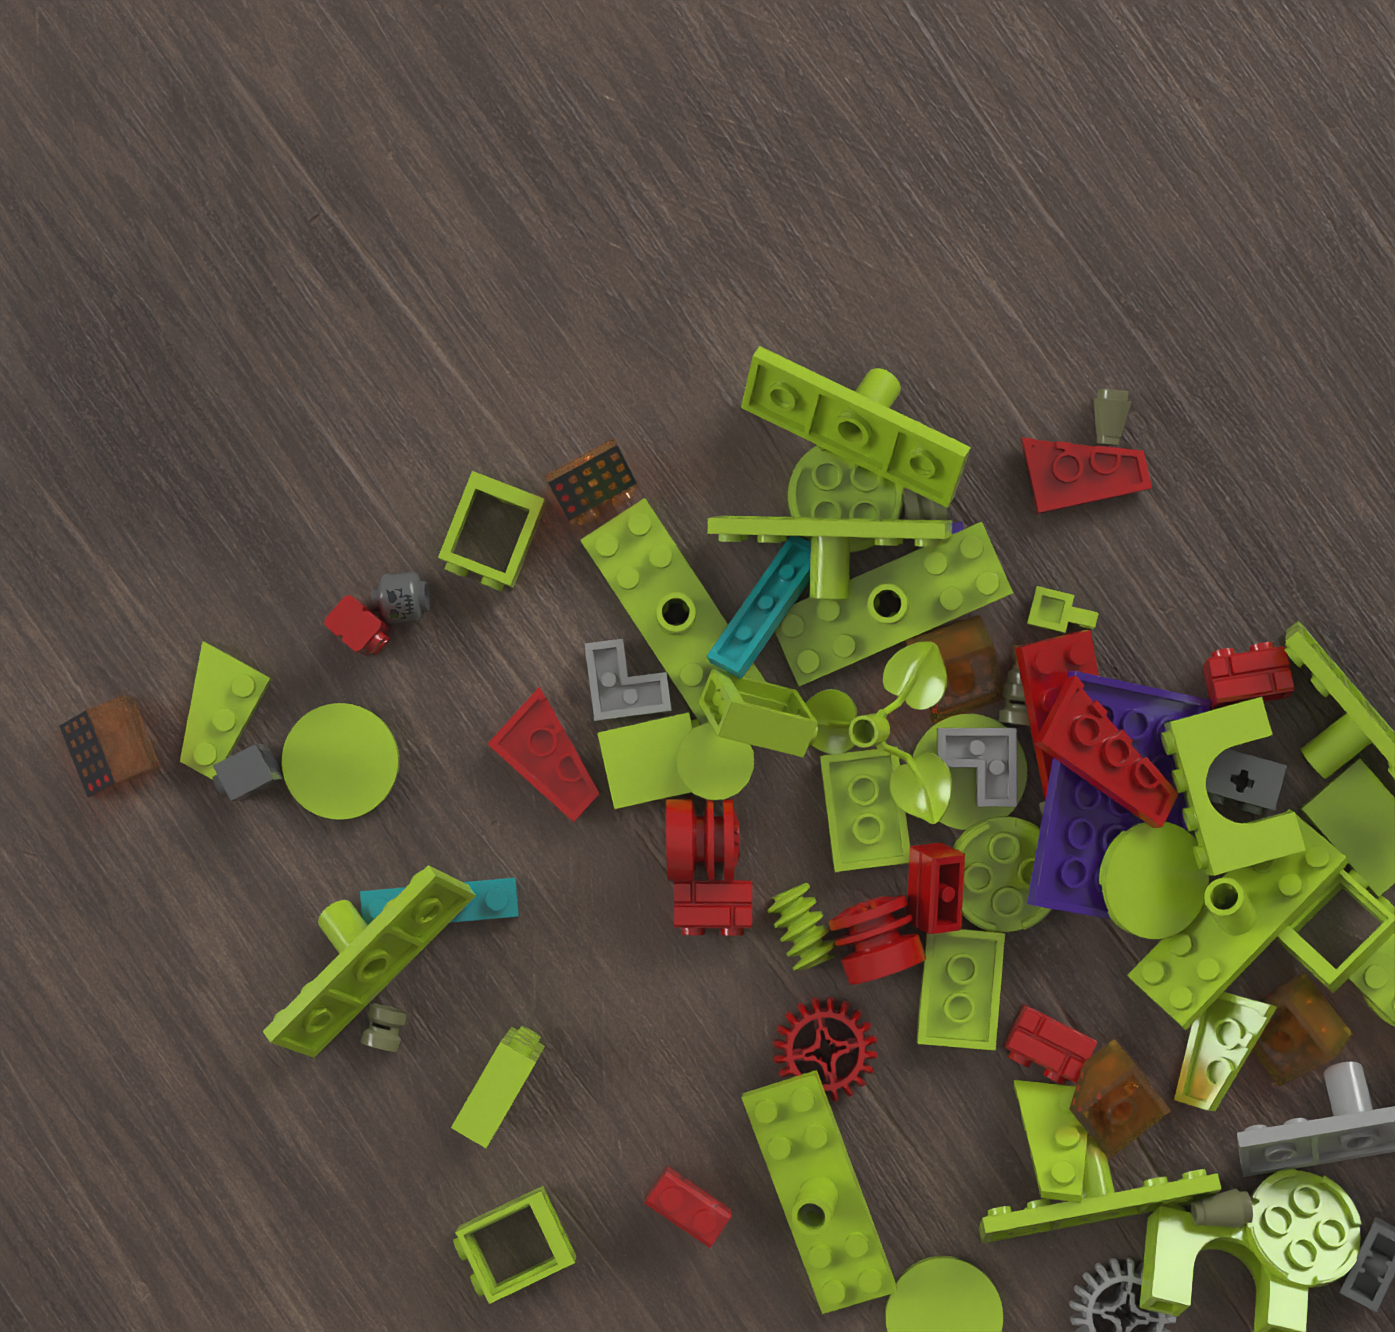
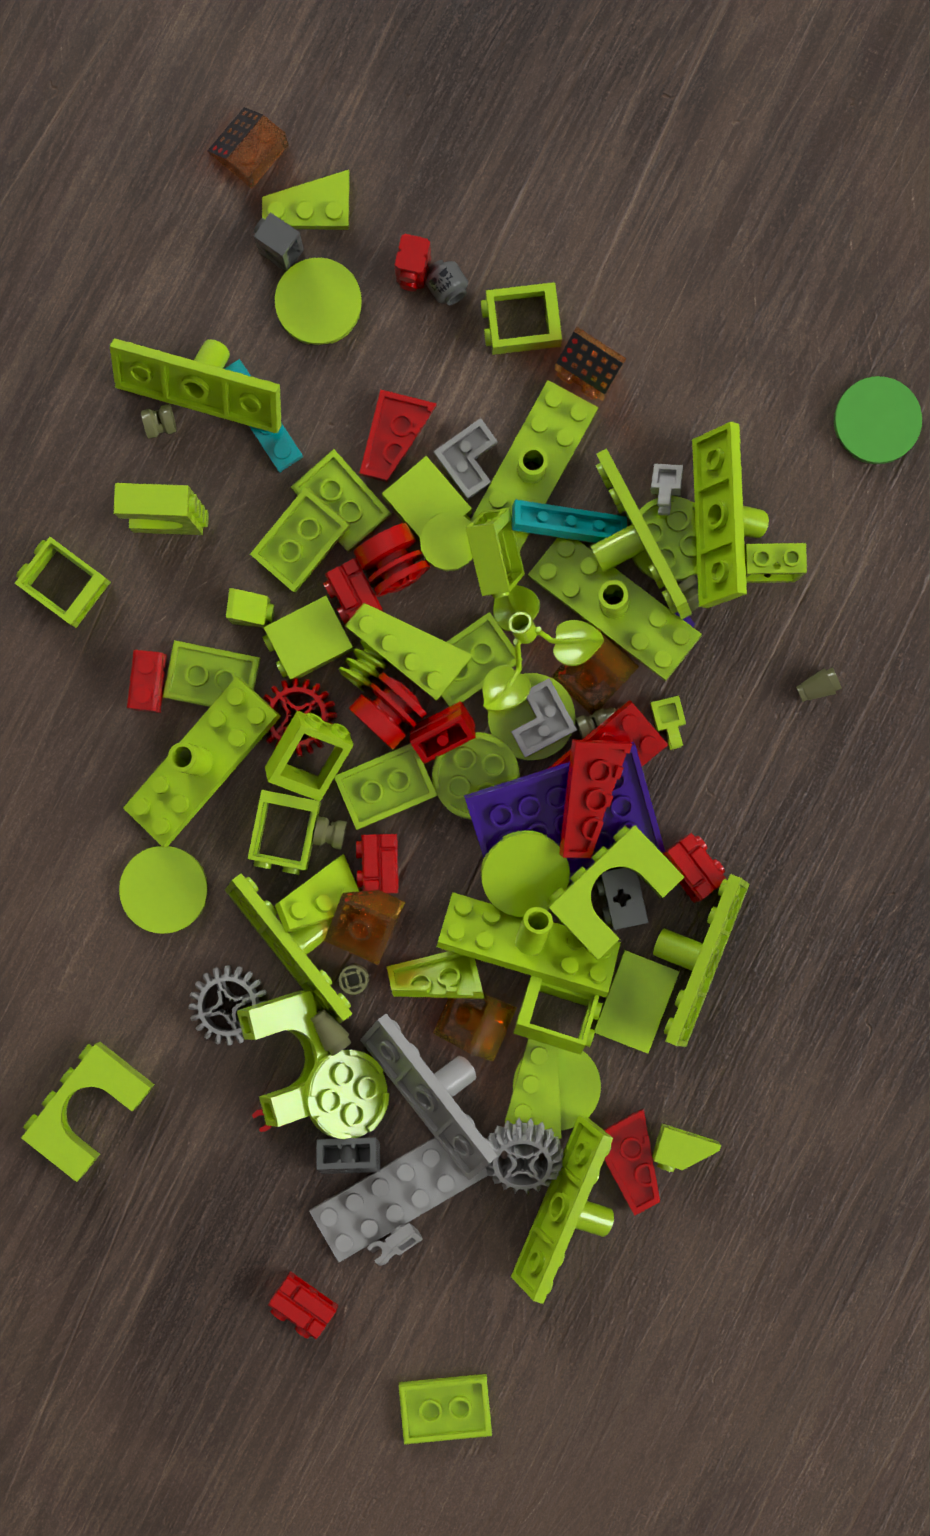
camera: 60 degrees right, 0 degrees up
(592, 860) = (347, 495): none -> lime tile
(616, 934) = (300, 539): none -> lime plate
(668, 1039) = (249, 608): none -> lime slope
(714, 1129) = (203, 673): none -> lime tile
(739, 988) = (307, 639): none -> lime brick
(778, 465) = (666, 482): none -> light grey plate
(826, 871) = (416, 654): none -> lime wing
(834, 178) = (878, 420): none -> bright green tile
(905, 1085) = (298, 780): none -> lime window
(919, 1112) = (266, 861): none -> lime window
(945, 390) = (782, 560): none -> lime window
(981, 1083) = (328, 832): none -> olive wheel
(1081, 474) = (767, 684): red wing -> none
(1165, 1140) = (357, 977): none -> olive wheel

